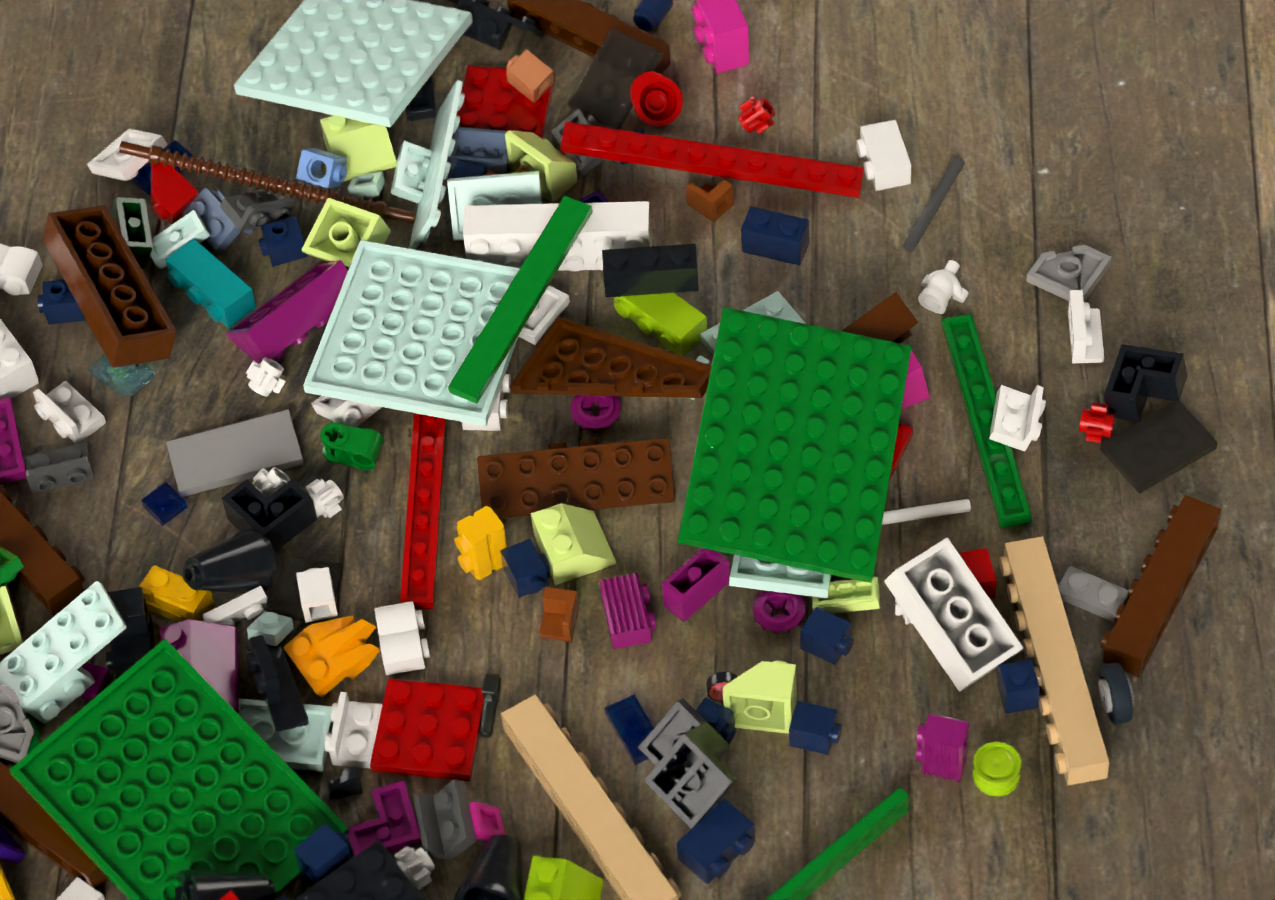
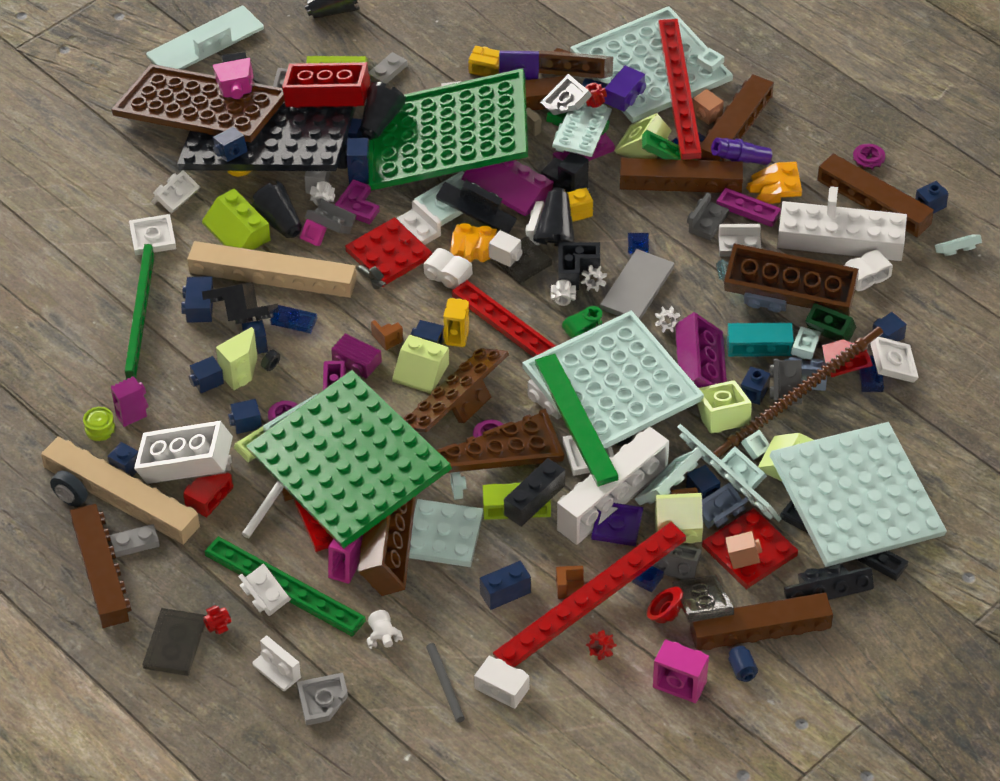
camera: 130 degrees right, 5 degrees down
(84, 189) = (892, 327): none -> dark blue brick
(271, 626) = (513, 227): light aqua plate -> none
(310, 168) = (782, 422): medium blue brick -> none
(346, 785) = (395, 203): black tile -> none
(1140, 375) = (213, 656): black brick -> none

